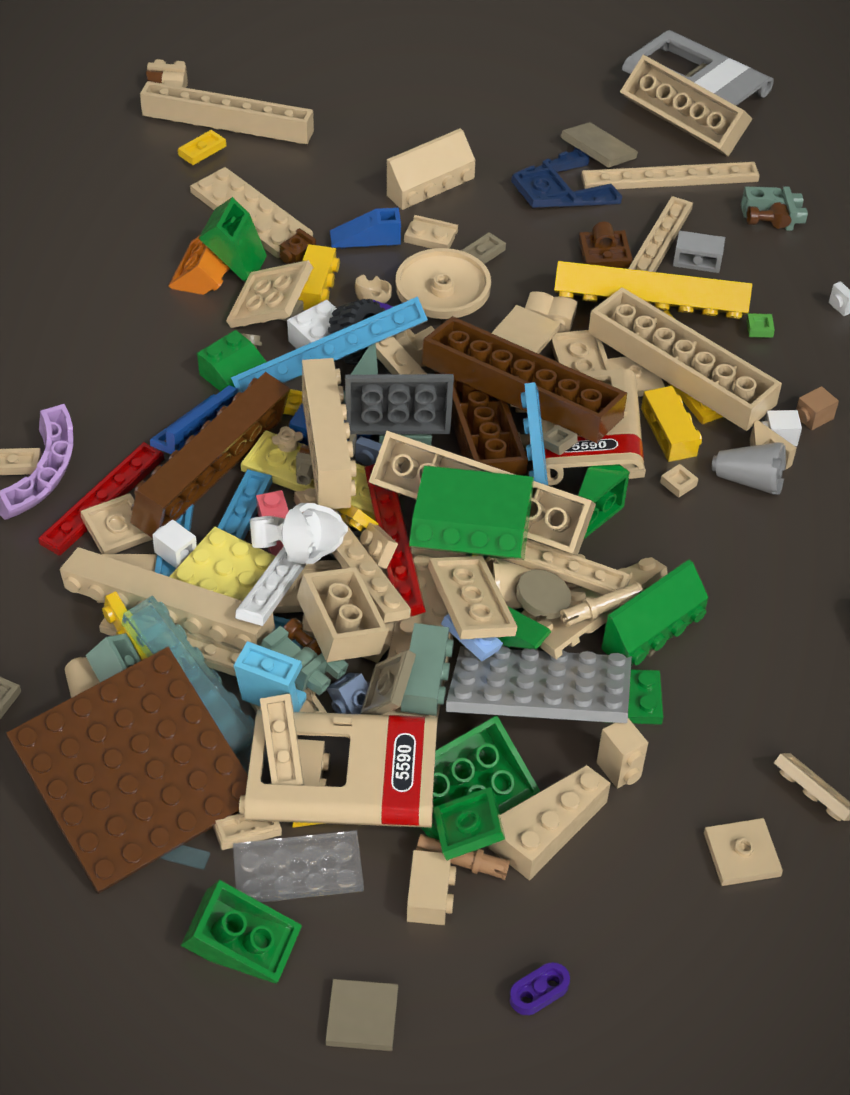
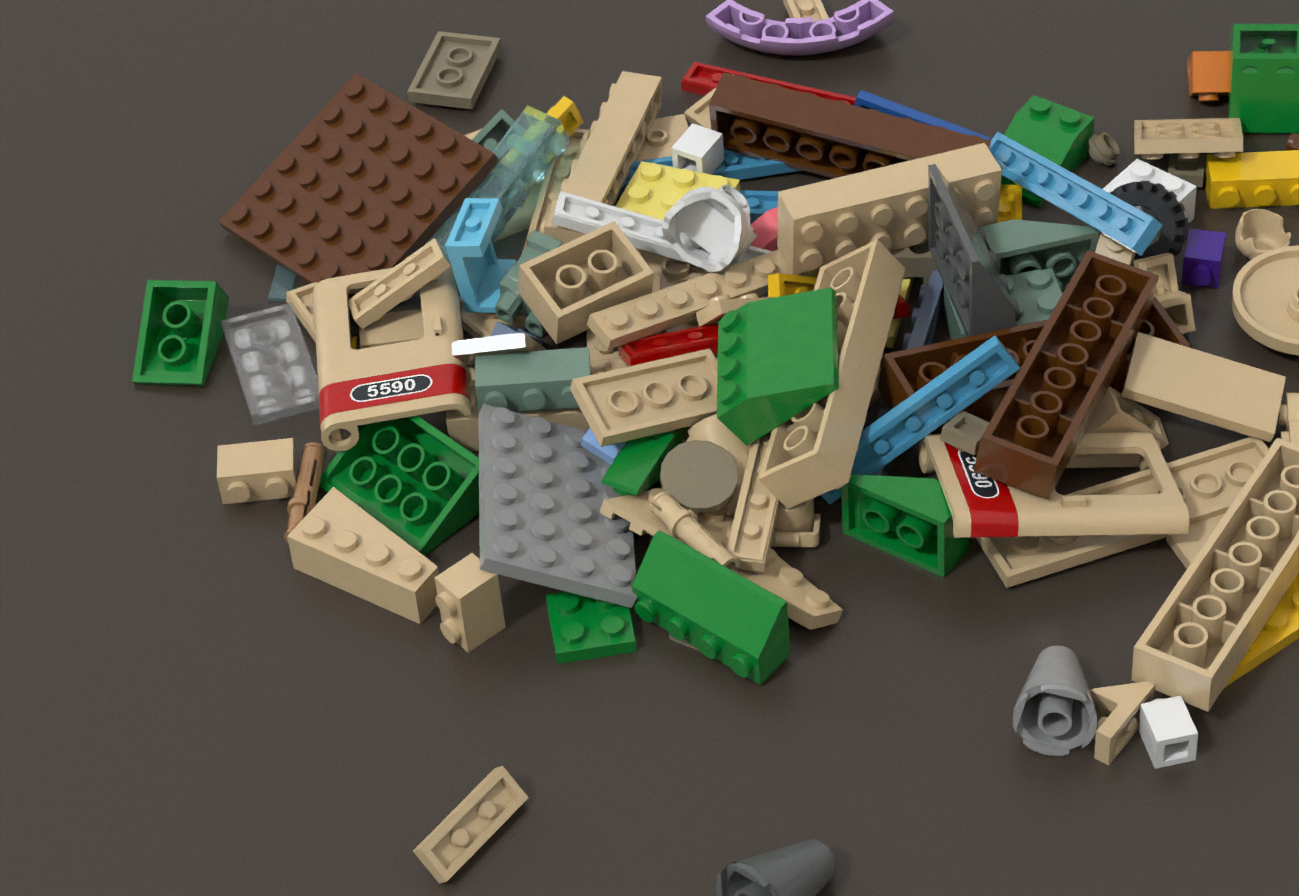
camera: 85 degrees right, 5 degrees down
(362, 1015) = (97, 453): dark tan tile -> none
(469, 823) = (325, 467): green plate -> none
(537, 989) = (138, 588): dark purple plate -> none
(671, 423) = (1118, 596): yellow brick -> none
(679, 480) = (1006, 622): tan plate -> none
(743, 852) = (361, 762): tan plate -> none
(816, 408) = (1234, 771): medium nougat brick -> none

